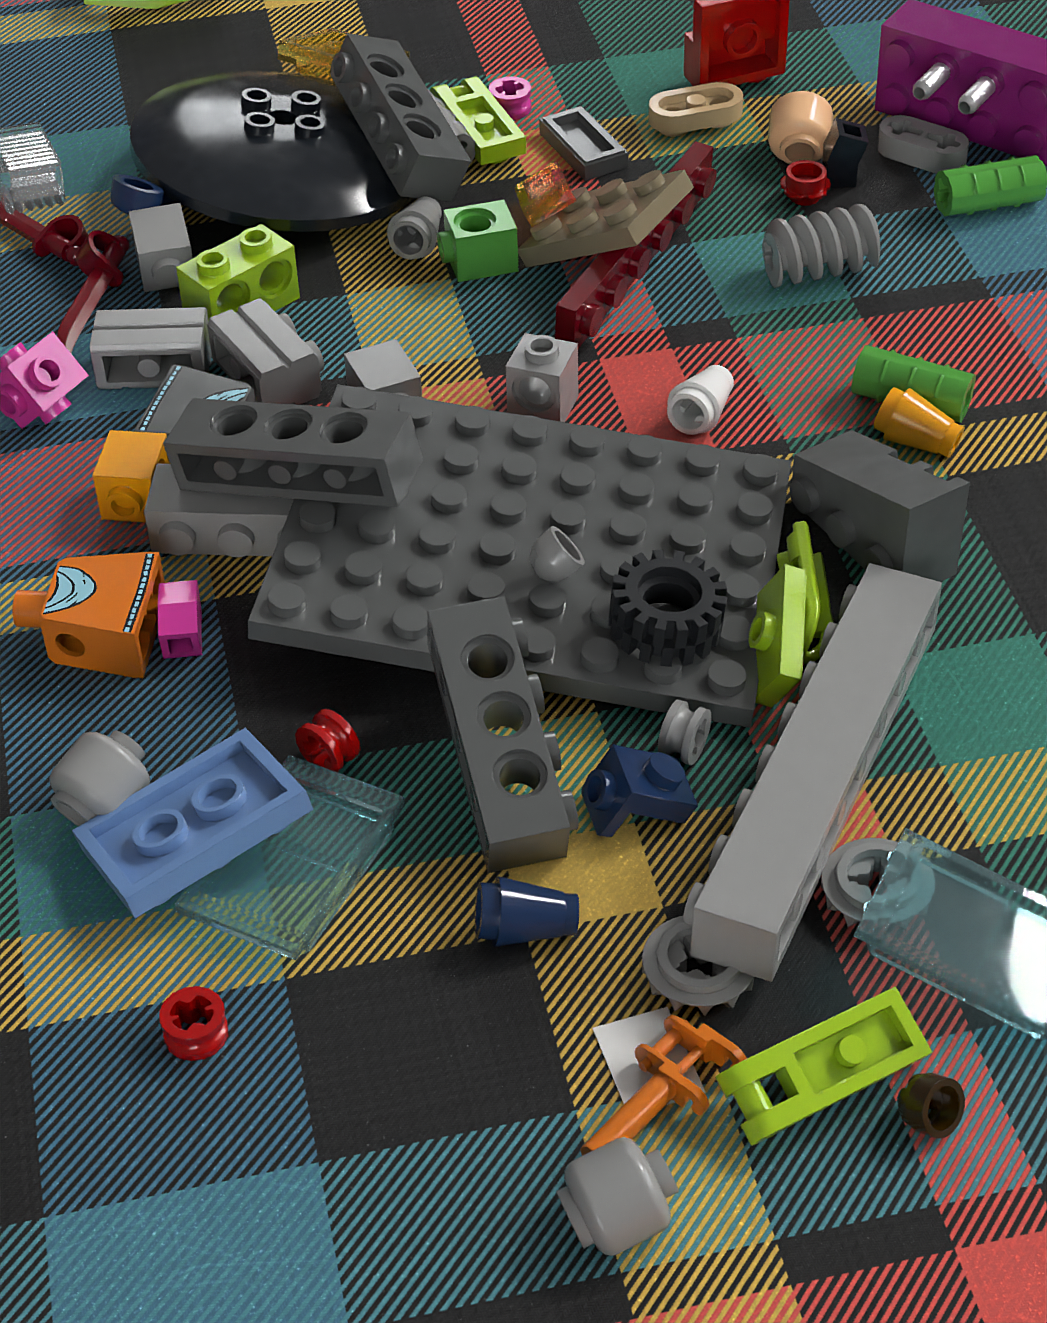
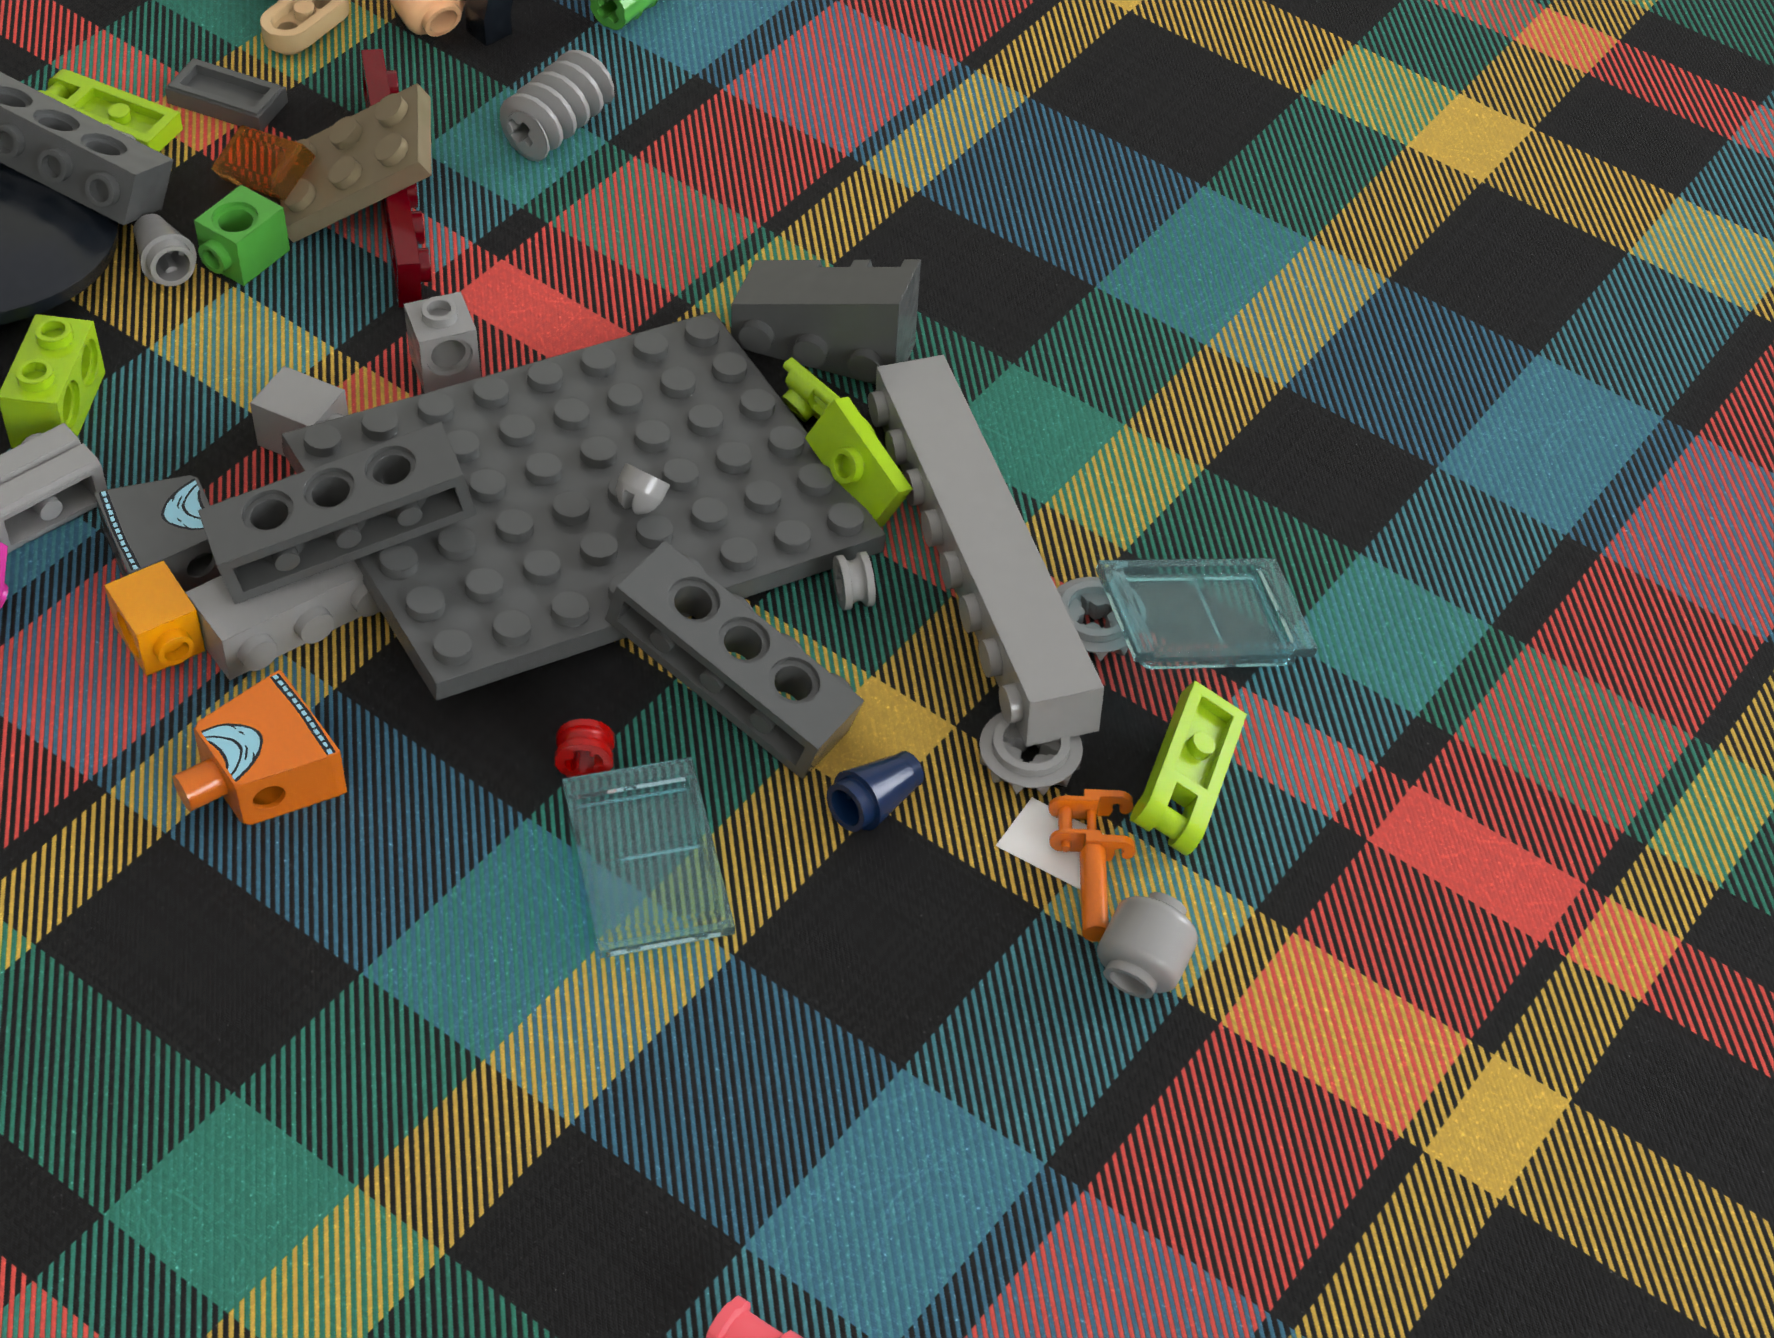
camera: 45 degrees left, 5 degrees up
(97, 775) = (430, 892): light grey head -> none
(179, 619) = (343, 718): dark pink piece -> none
(192, 821) = (552, 877): medium blue plate -> none
(199, 1040) = (728, 1020): red bush -> none
(266, 353) = (155, 440): light grey brick -> none
(512, 95) = (111, 70): dark pink bush -> none
(636, 784) = (861, 643): dark blue bracket -> none
(661, 631) = (761, 507): black tyre -> none
(700, 400) = (588, 295): white cone -> none
(805, 182) = (475, 48): red plate -> none
(917, 423) = (780, 230): light orange cone -> none
(934, 1092) = (1274, 751): dark brown hinge -> none
(940, 385) = (746, 196): bright green axle -> none

